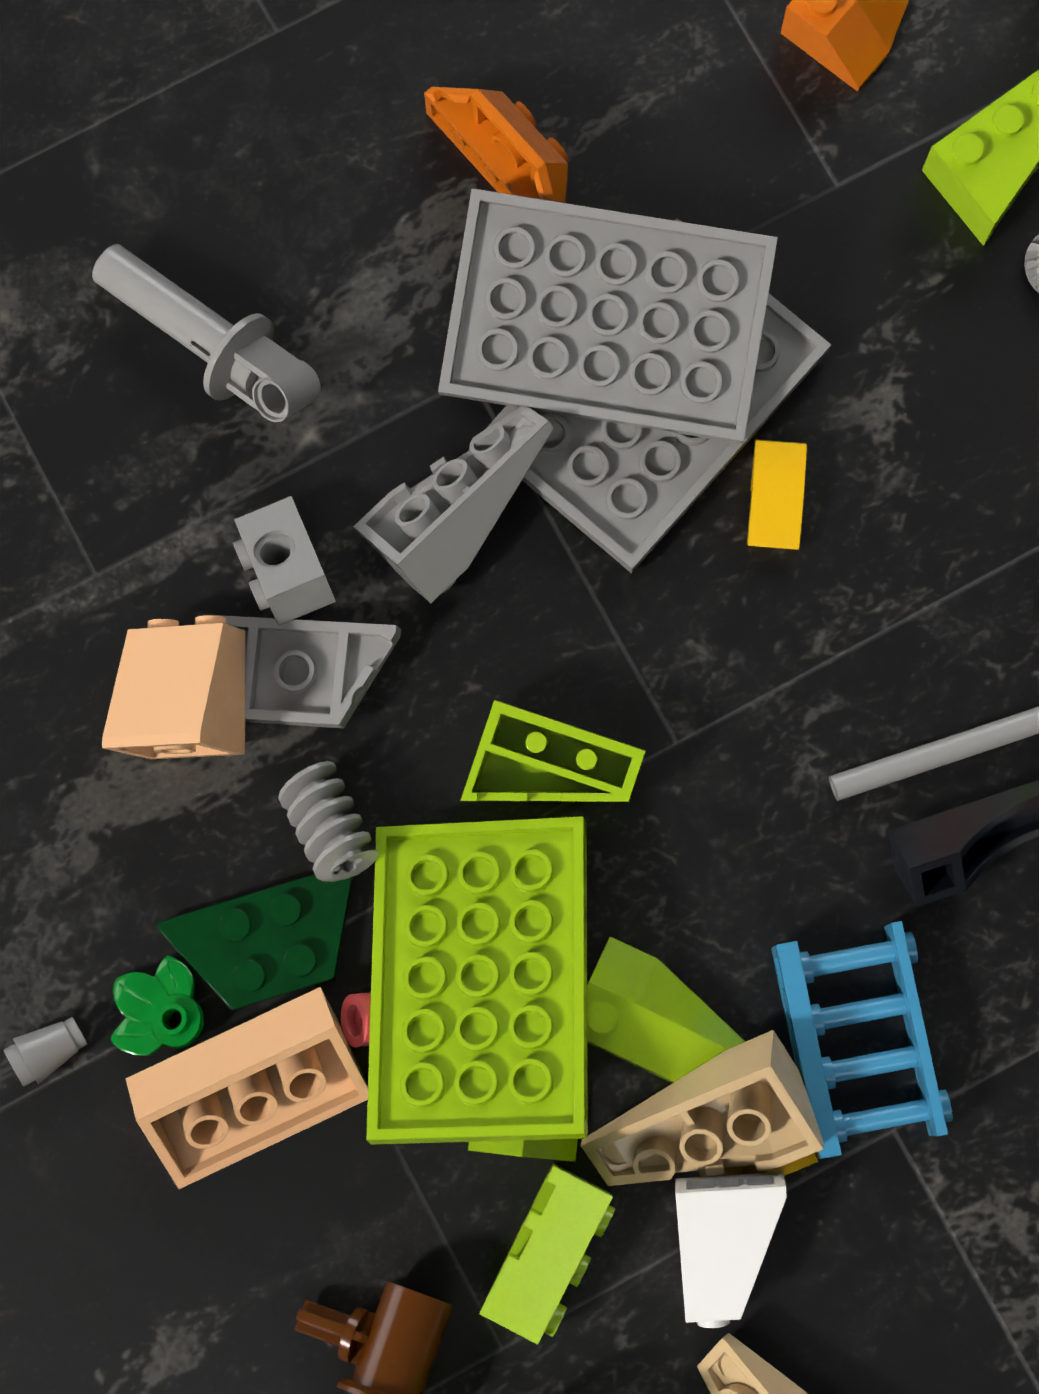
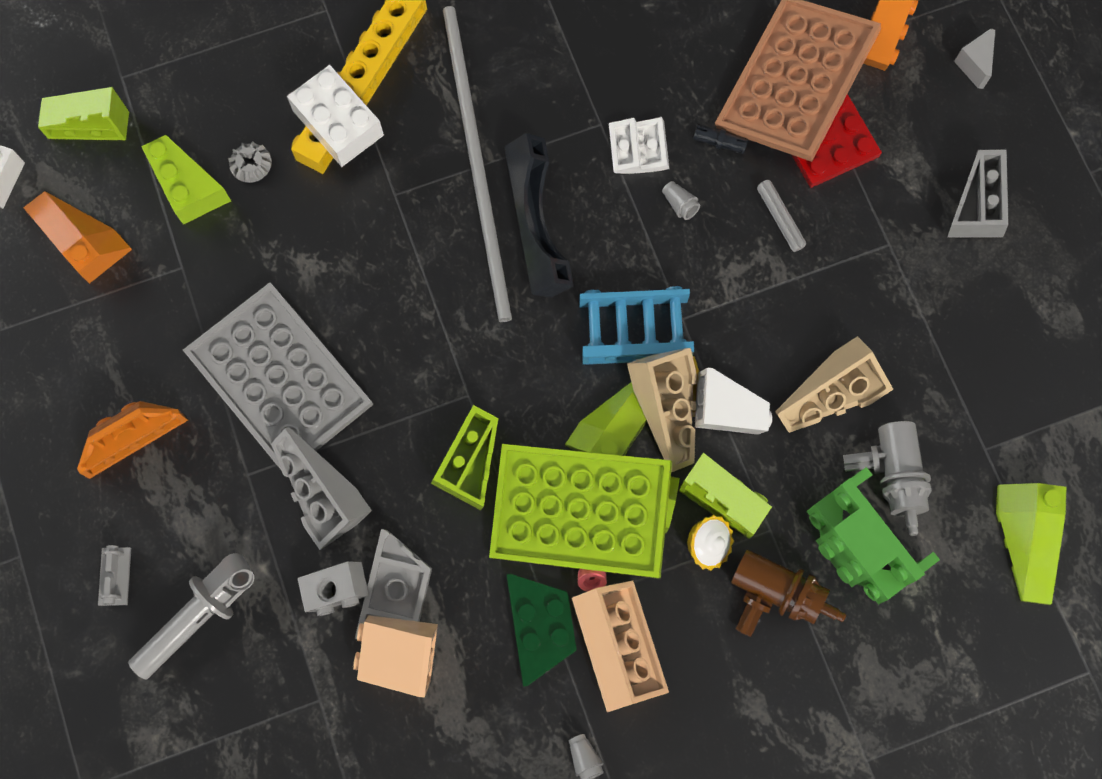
camera: 85 degrees left, 5 degrees down
(149, 1005) = (567, 695): green plate -> none
(260, 191) = (114, 576): none -> light grey hinge
(322, 823) = (483, 584): light grey piece -> none
(456, 1233) = (710, 542): none -> white piece
(607, 315) = (230, 392): light grey plate -> none
(777, 494) = (345, 322): yellow slope -> none

